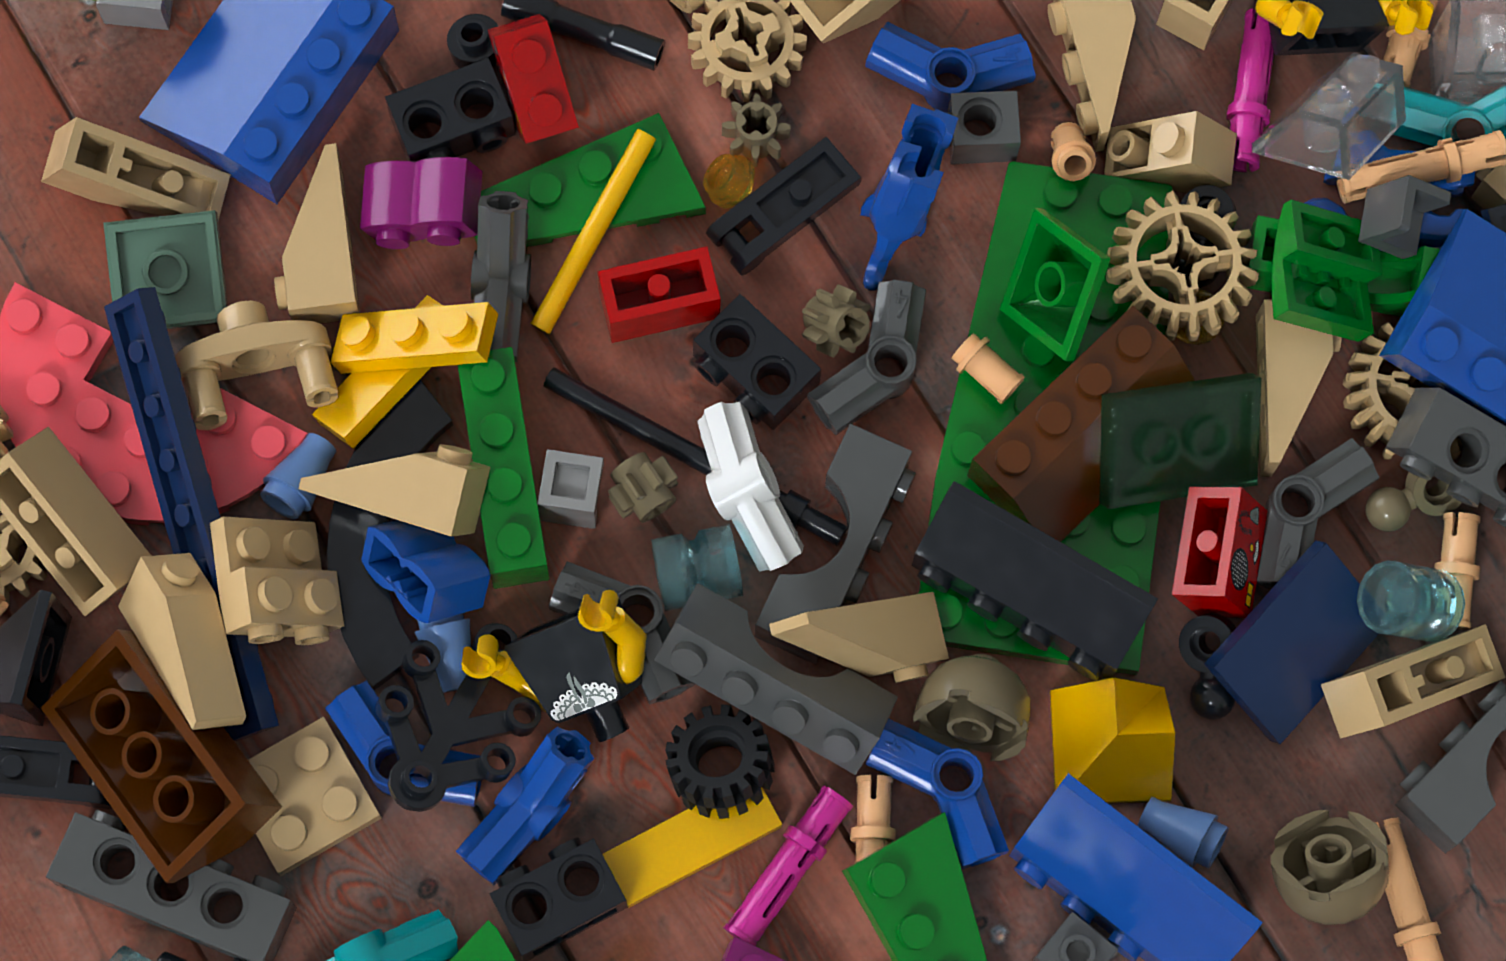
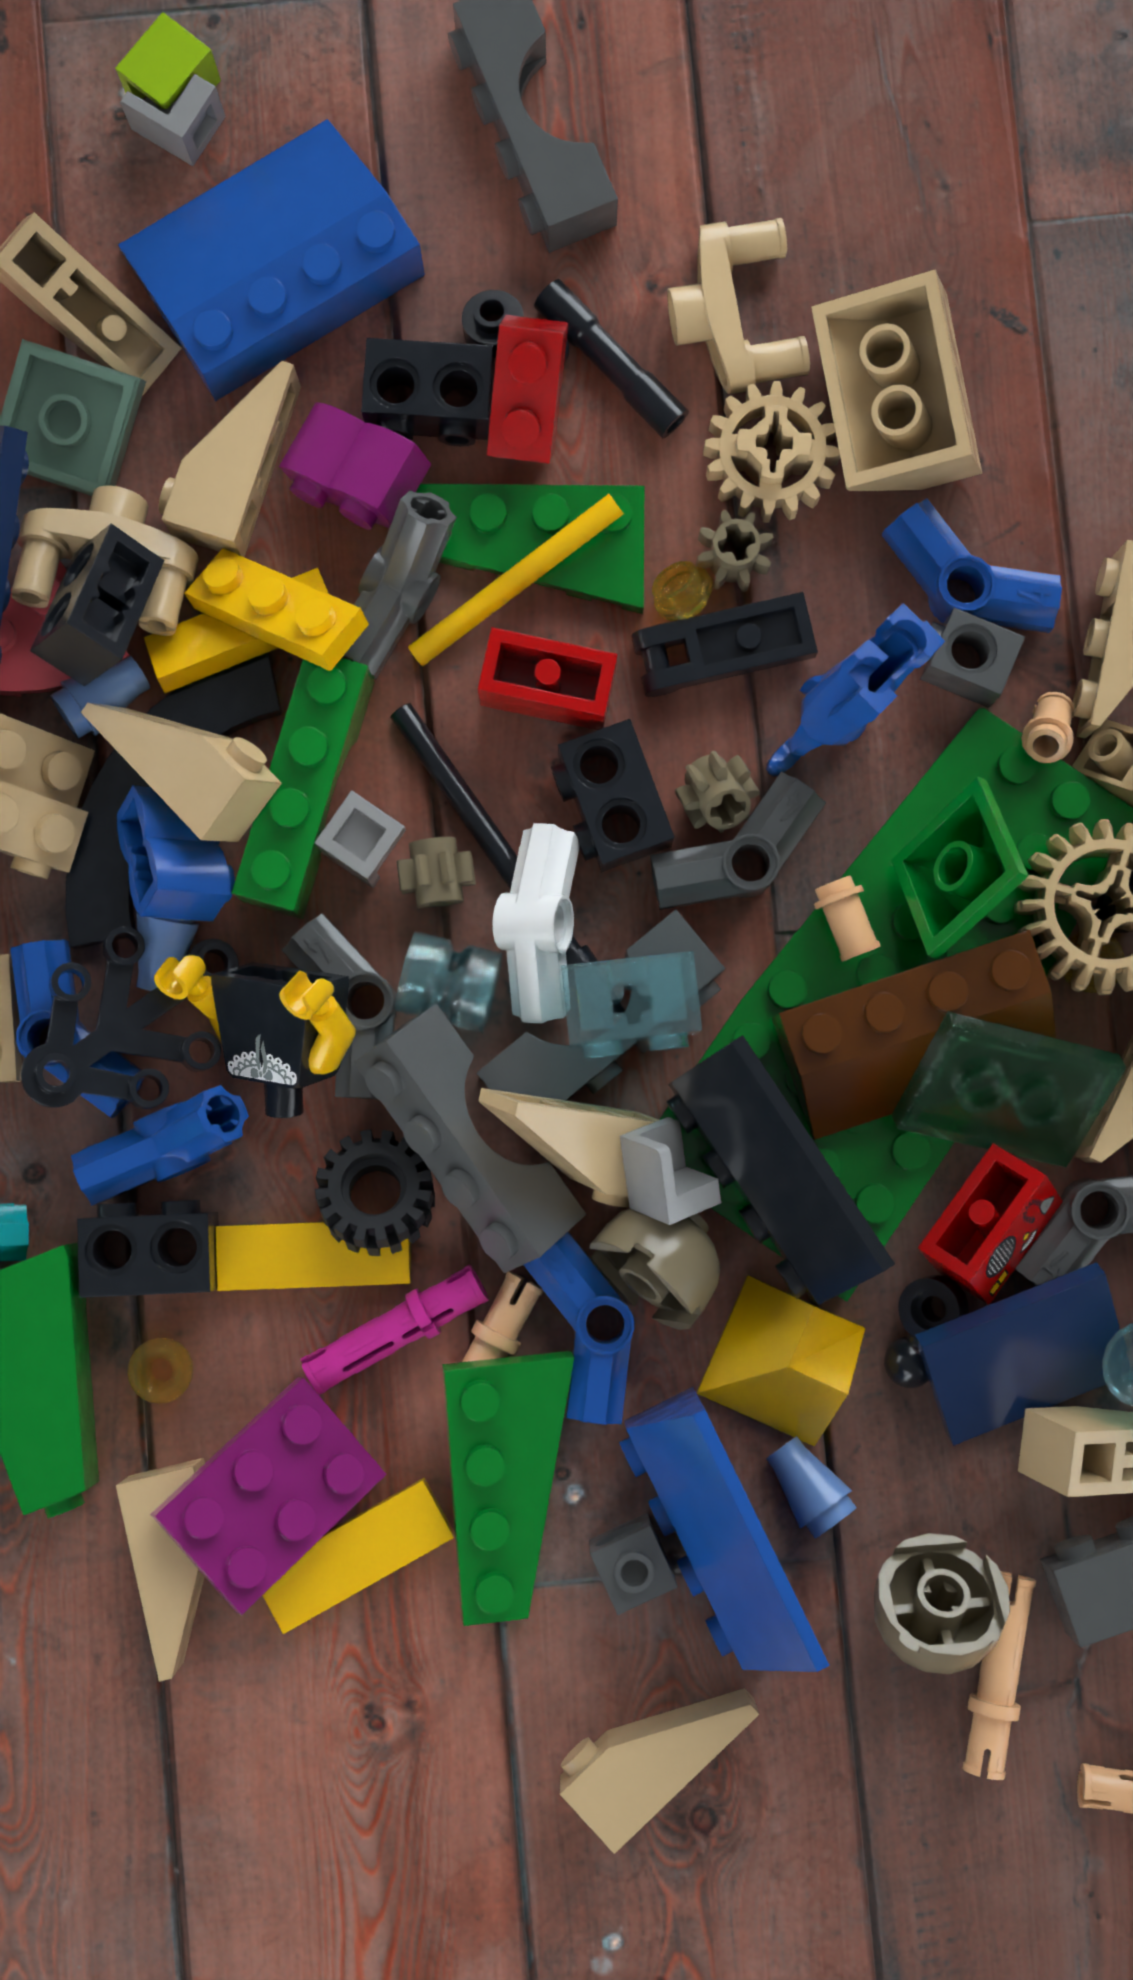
camera: 30 degrees right, 10 degrees up
(273, 398) = (97, 605): none -> black brick
(867, 479) = (662, 979): none -> clear light blue brick
(939, 634) = (658, 1176): none -> light grey panel

